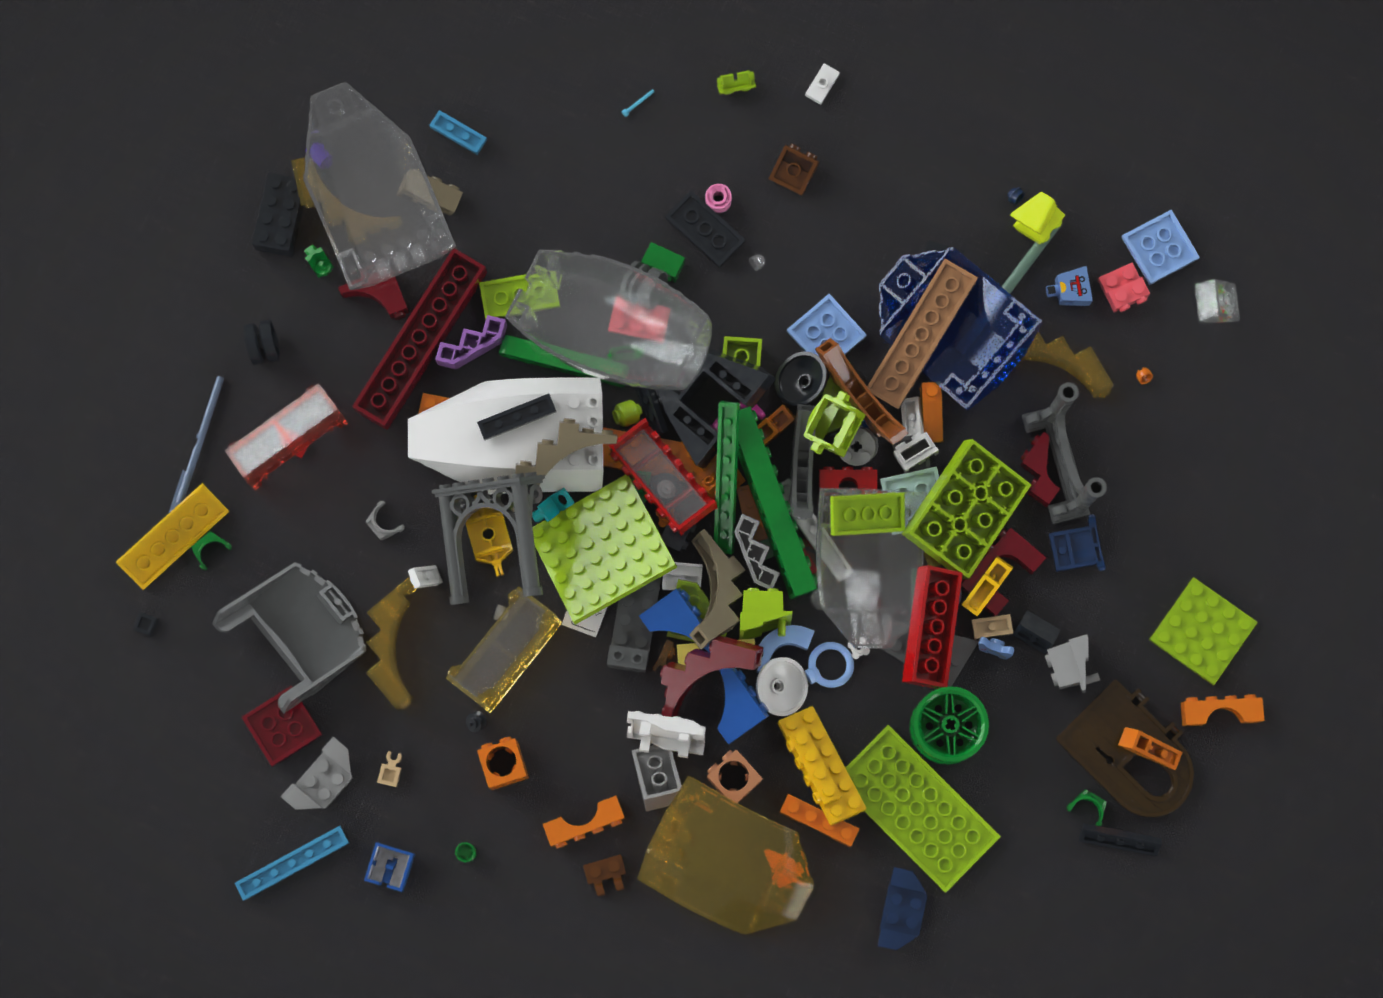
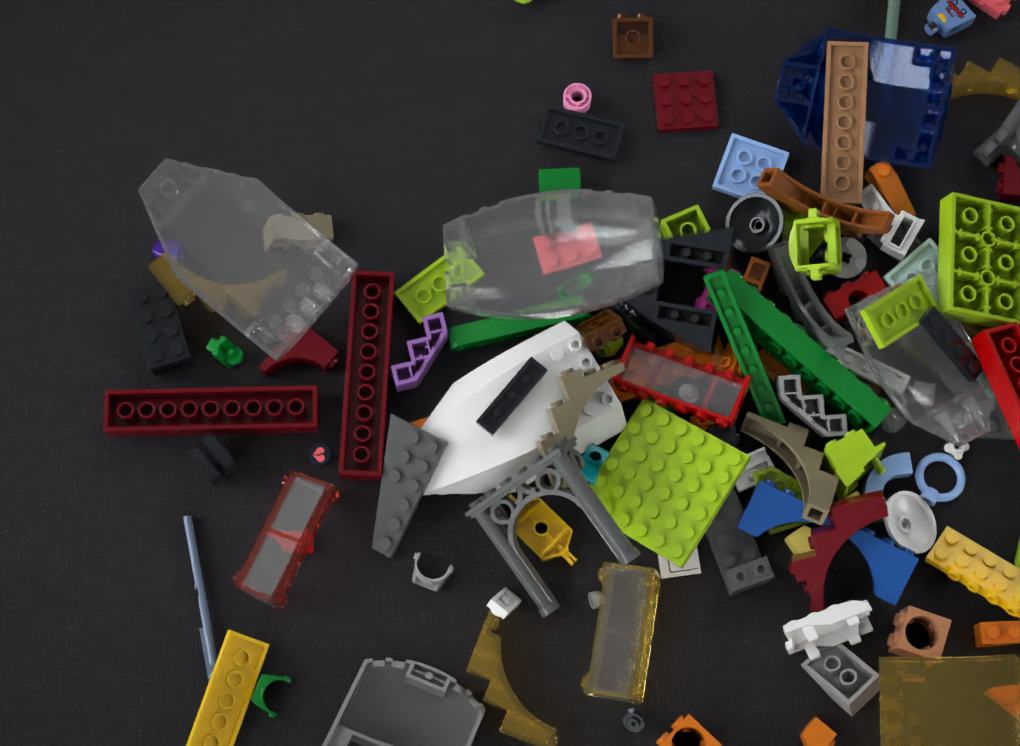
camera: 30 degrees left, 5 degrees down
(283, 303) = (211, 410): none -> dark red brick
(349, 383) = (320, 455): none -> tile
(406, 433) = (407, 470): none -> dark grey wing
(458, 132) = (293, 163): dark azure plate -> none
(621, 401) = (601, 329): none -> reddish brown plate
(626, 112) = (443, 66): medium azure piece -> none
(667, 652) = (780, 550): clear orange plate -> none
(757, 262) = (647, 139): clear hinge -> none
(808, 246) = (685, 101): none -> dark red plate
(898, 561) = (951, 343): none -> black plate

